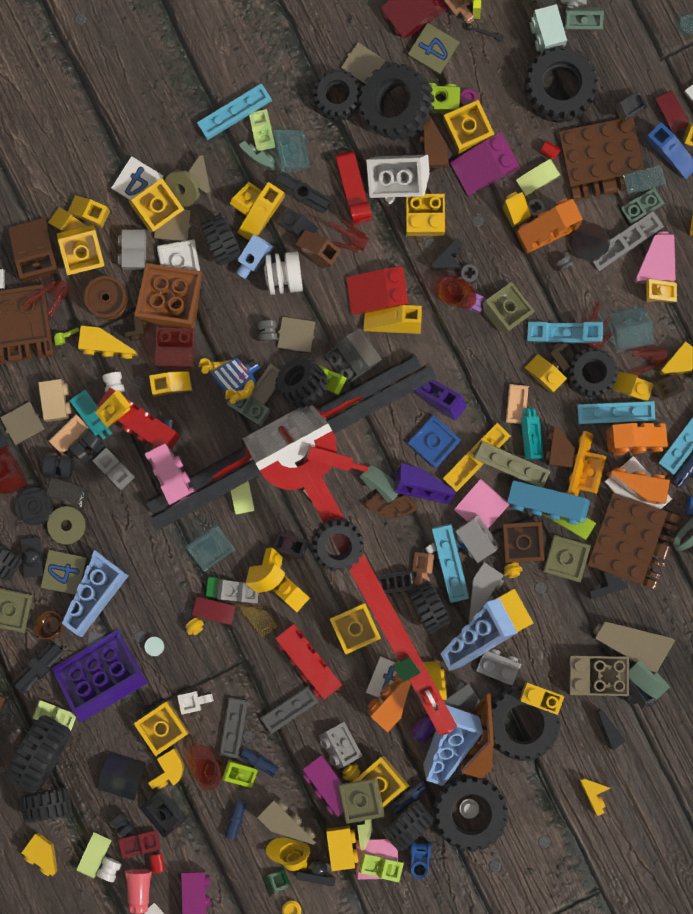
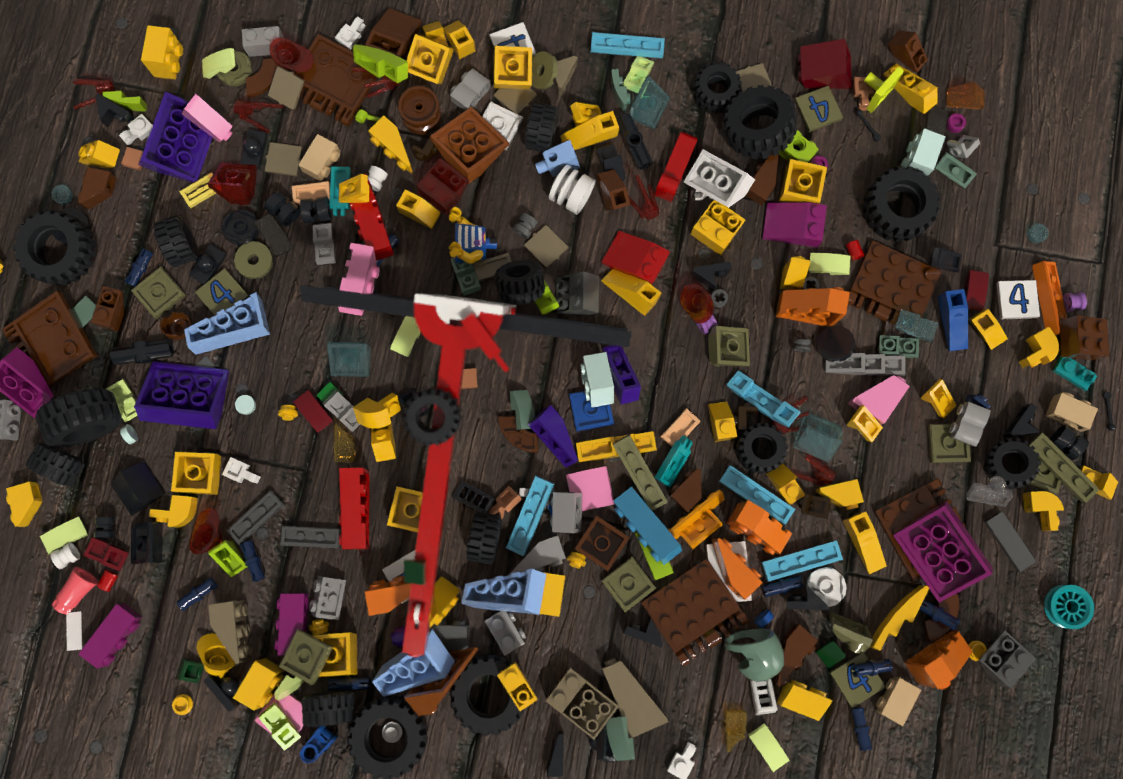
camera: 30 degrees right, 5 degrees down
(44, 283) = (381, 62): none -> lime slope
(81, 739) = (129, 434): none -> light aqua tile
(423, 415) = (597, 379): none -> light aqua brick

